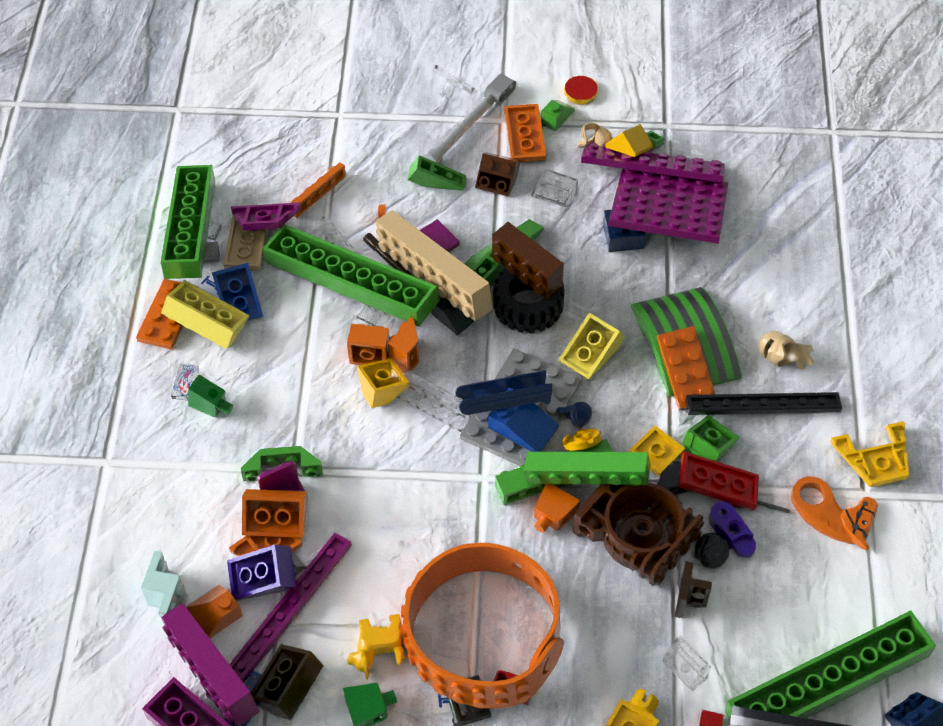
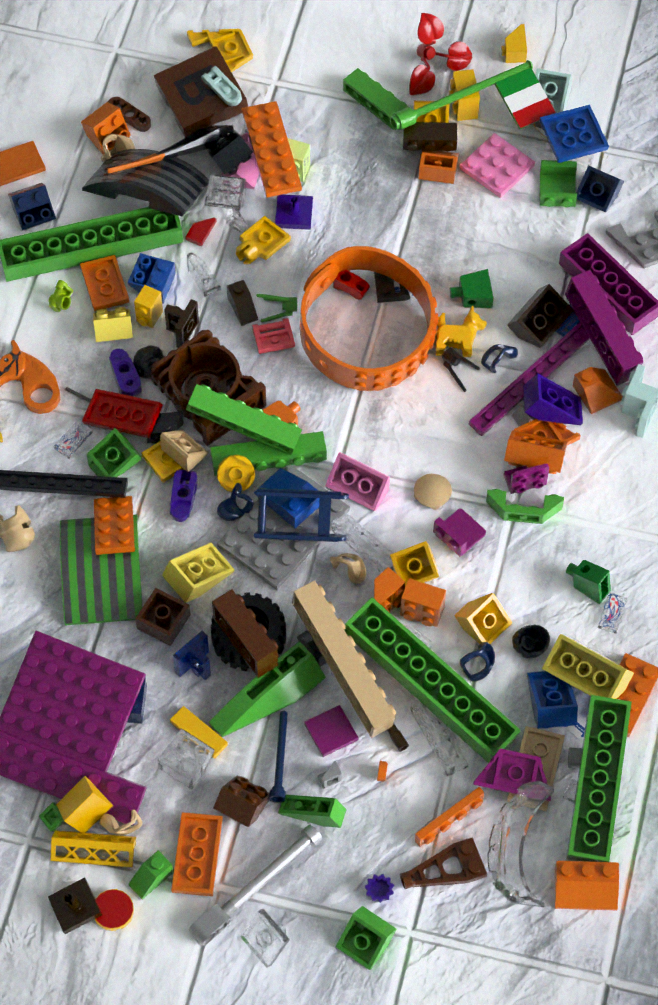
camera: 170 degrees left, 5 degrees up
(208, 156) = (586, 885): none -> orange slope
(261, 336) = (531, 641): none -> black hair
(265, 167) = (508, 840): none -> clear windscreen
(298, 168) = (469, 860): none -> reddish brown plate
(303, 317) = (485, 651): none -> dark blue piece
(312, 346) = (483, 618): none -> yellow slope
(320, 633) = (508, 351): none -> dark blue piece
(346, 426) = (459, 531): none -> magenta bracket
(368, 131) = (379, 888): none -> dark purple piece
(372, 100) = (365, 937): none -> bright green slope
(378, 468) = (432, 490): none -> tan dish
(379, 614) = (453, 358): none -> black plant
(427, 203) = (331, 776): none -> light grey slope
(438, 369) = (356, 569): none -> tan piece
(455, 460) = (359, 481): none -> bright pink slope
(469, 183) = (277, 793): none -> dark blue piece
(551, 221) = (193, 725): none -> yellow tile
(574, 263) = (193, 656): none -> clear blue bracket
(579, 646) = (288, 304): none -> bright green plant
(583, 601) = (273, 340): none -> coral plate
(611, 297) = (163, 616): none -> reddish brown brick
(612, 84) = (74, 905): none -> dark brown tile
(615, 124) = (93, 841): none -> yellow fence
(629, 403) = (182, 506): none -> dark purple piece
(632, 639) = (242, 302): none -> dark brown slope
(643, 440) = (182, 449): none -> tan slope
(733, 602) = (148, 306): none -> yellow brick
(743, 646) = (154, 273): none -> blue slope
(760, 457) = (73, 439): none -> clear tile
(767, 585) = (112, 324): none -> light yellow slope
(793, 634) = (104, 283): none -> orange plate
(837, 607) = (61, 297): none -> lime plate

